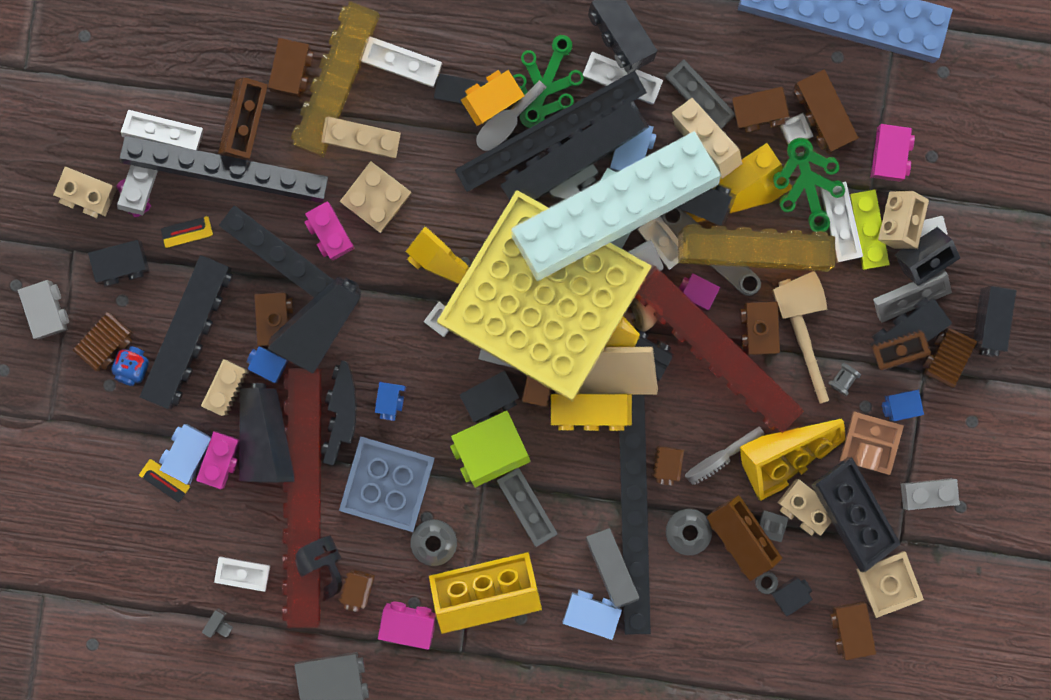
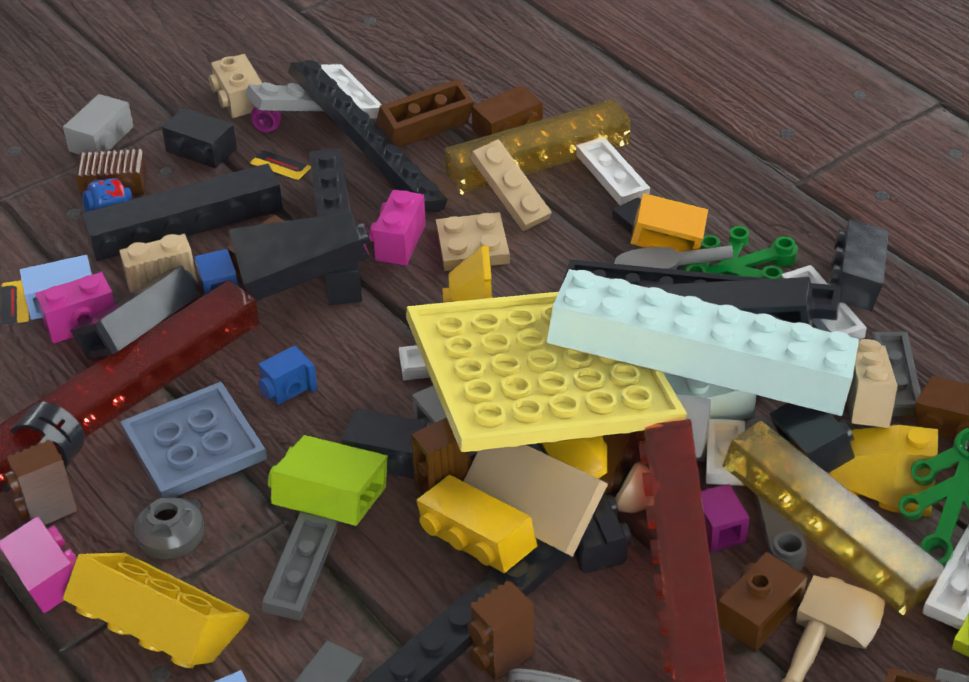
camera: 50 degrees right, 45 degrees down
(344, 403) = (229, 360): black slope -> none

